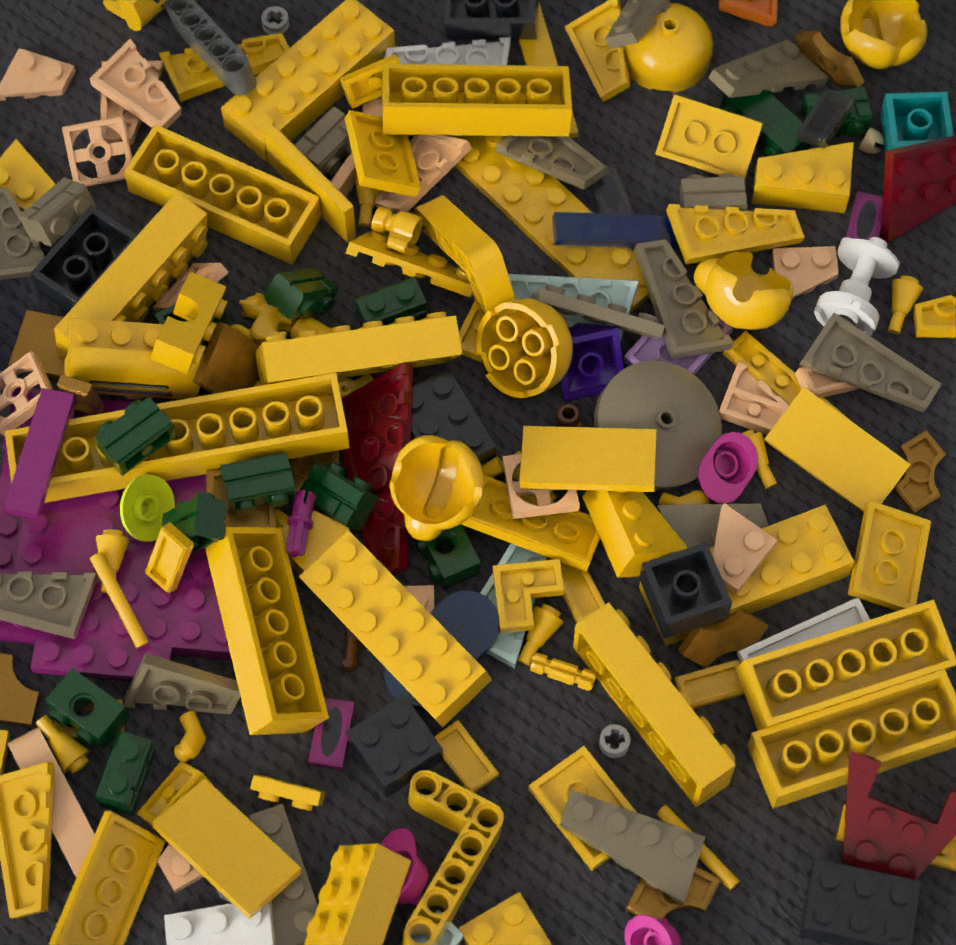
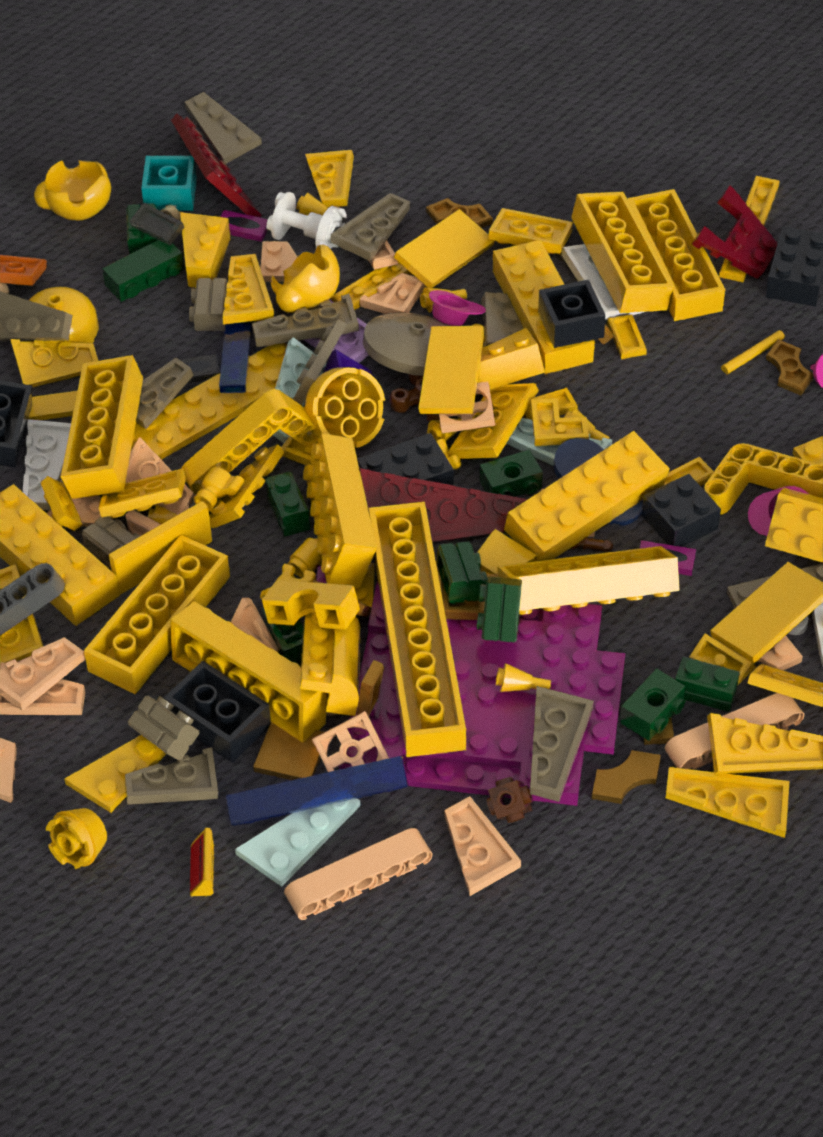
camera: 85 degrees left, 15 degrees down
(40, 453) = (433, 704): magenta tile -> none
(68, 752) = (687, 720): yellow cone -> none
(113, 149) = (96, 689): light nougat piece -> none
(119, 600) = (560, 672): yellow bar -> none
(134, 435) = (425, 632): dark green brick -> none
(143, 506) = (475, 656): neon yellow dish -> none
(169, 557) = (529, 627): yellow tile -> none
(176, 684) = (632, 641): dark tan wing -> none
(193, 739) = (668, 645): yellow arm -> none
(272, 789) = (720, 575): yellow plate -> none
(300, 523) = (496, 552): magenta axle -> none
(301, 293) = (271, 554): dark green brick -> none
(340, 496) = (469, 526): dark green brick -> none
(436, 485) = (474, 452): yellow piece -> none
(562, 671) = (615, 416): yellow axle -> none
(583, 775) = (726, 406): yellow plate -> none
(606, 734) = (673, 384): light grey bush -> none
(646, 846) = (755, 374): dark tan wing -> none
(654, 704) = (650, 356): yellow brick -> none
(708, 137) = (156, 299): yellow plate -> none
(739, 548) = (524, 290): light nougat wing -> none
(768, 69) = (100, 257): dark tan wing -> none
(836, 65) = (86, 231): pearl gold tile -> none

